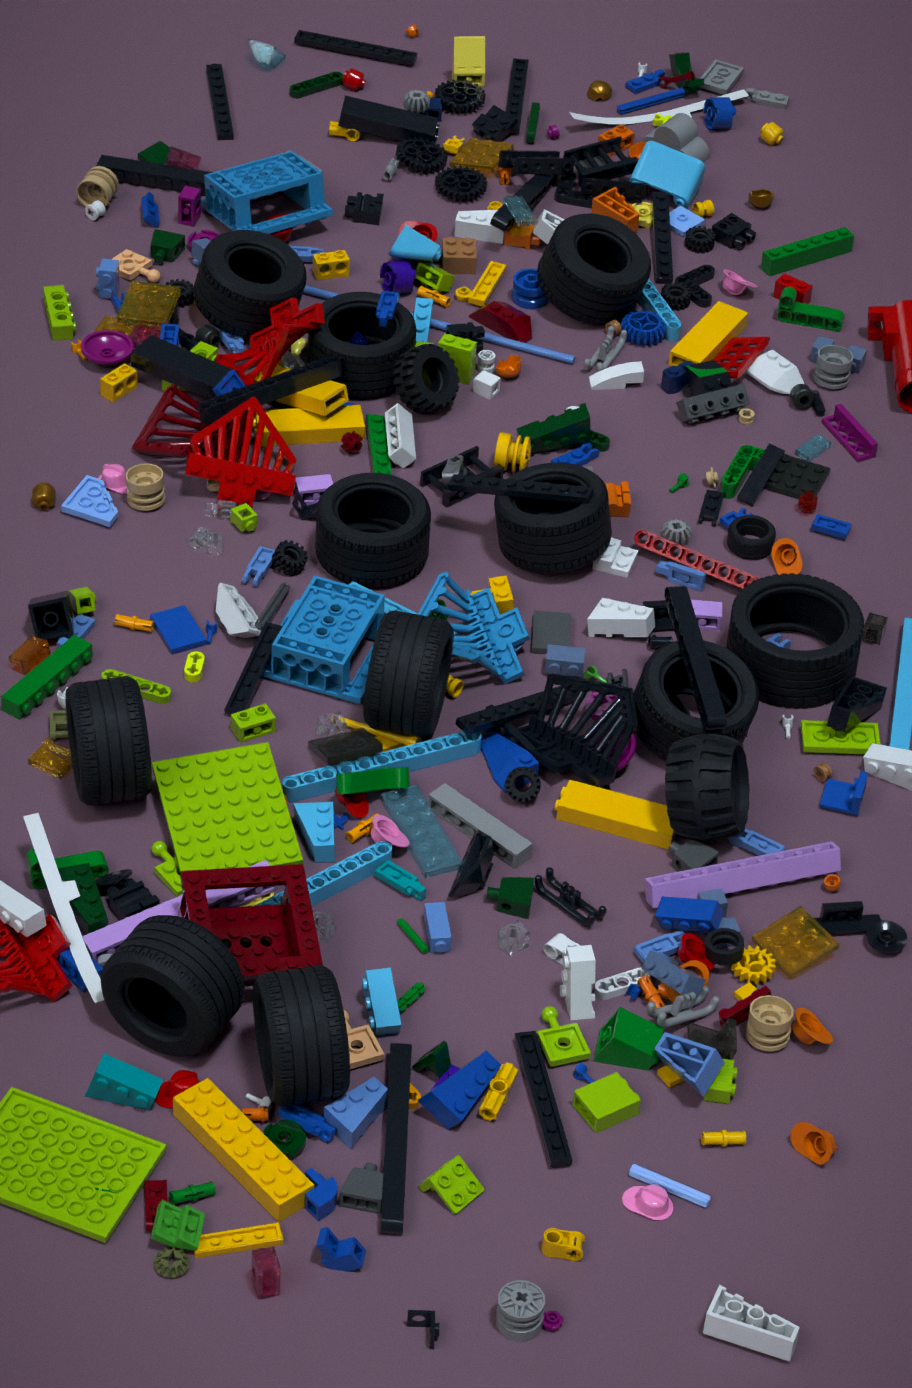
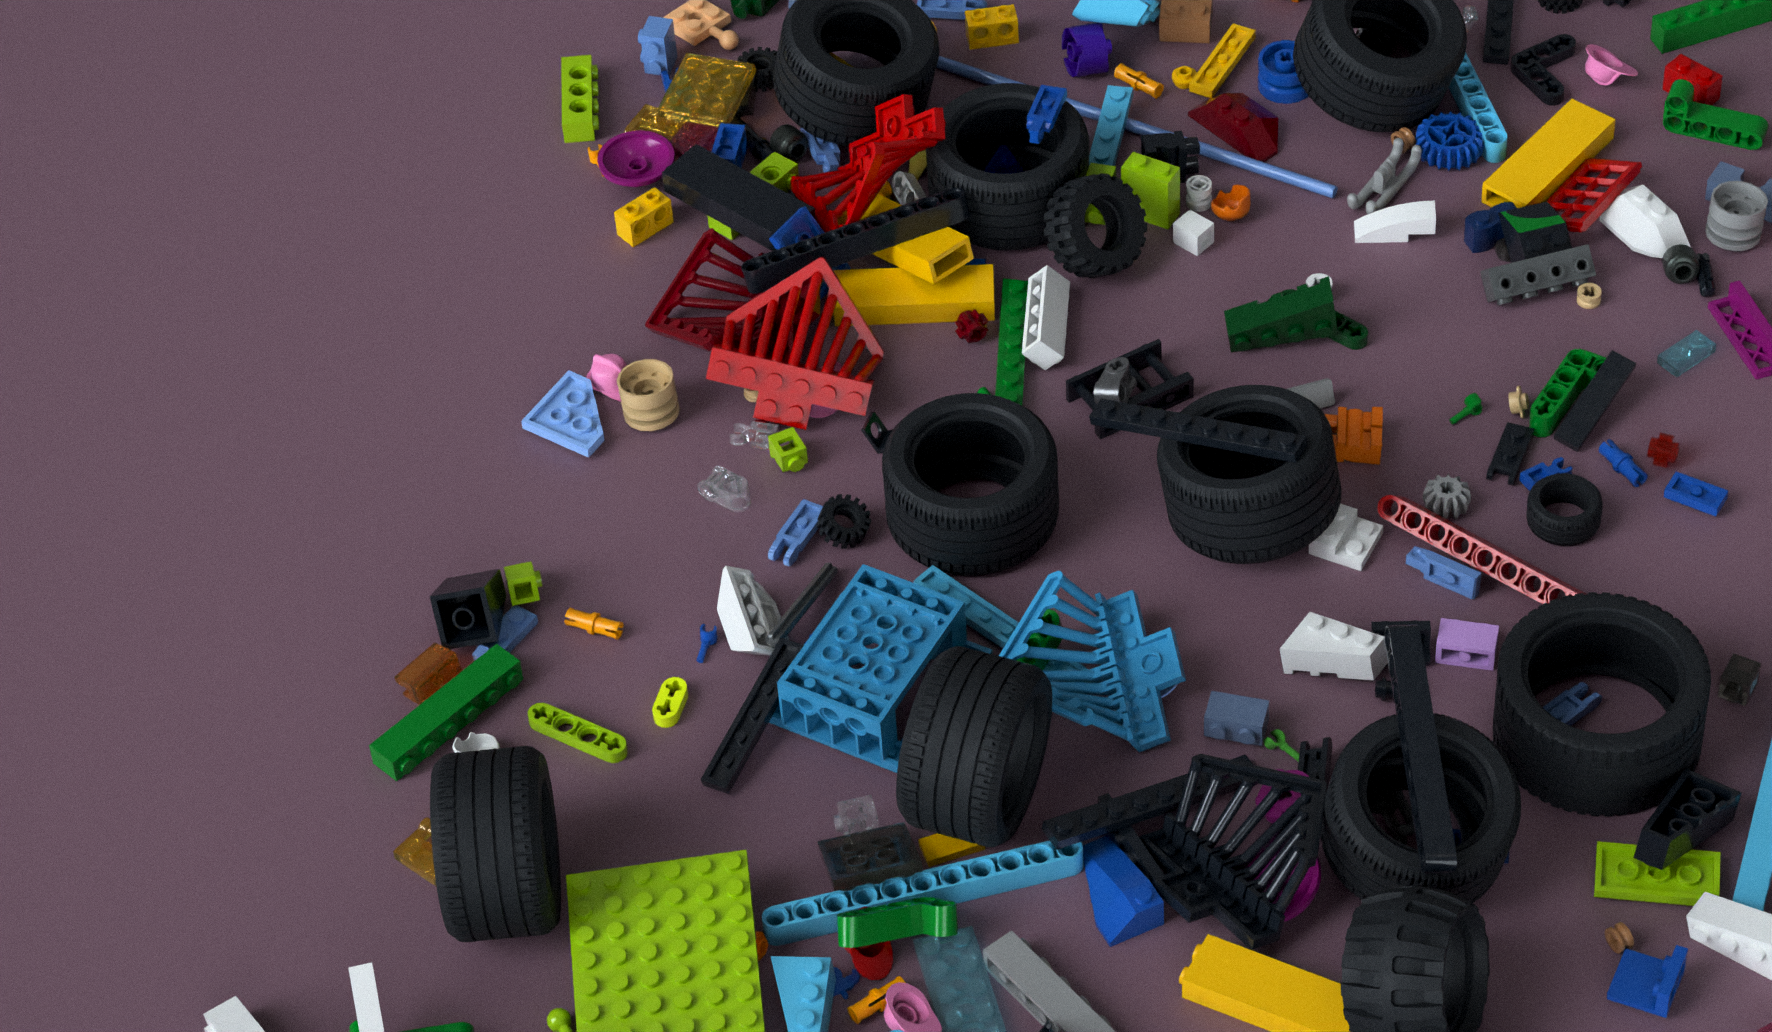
camera: 15 degrees right, 5 degrees up
(43, 496) = (499, 404): pearl gold head -> none
(178, 629) = (658, 636): blue tile -> none
(253, 723) = (739, 805): lime brick -> none
(312, 487) = (898, 400): lavender brick -> none
(409, 740) = (969, 849): yellow piece -> none
(434, 276) = (1142, 49): lime brick -> none
(454, 686) = (1057, 755): yellow wheel -> none
(501, 592) = (1153, 599): yellow brick -> none
(512, 452) = (1216, 353): yellow wheel -> none
(523, 772) = (1121, 951): black tyre -> none
(550, 629) = (1225, 662): dark grey tile -> none
(578, 456) = (1310, 361): blue hinge -> none
(676, 295) = (1510, 77): black tyre -> none
(783, 511) = (1622, 463): none -> blue pin
(786, 556) = (1615, 550): orange piece -> none
(787, 724) = (1576, 845): white hand -> none
(796, 476) = (1654, 404): pearl dark grey plate -> none

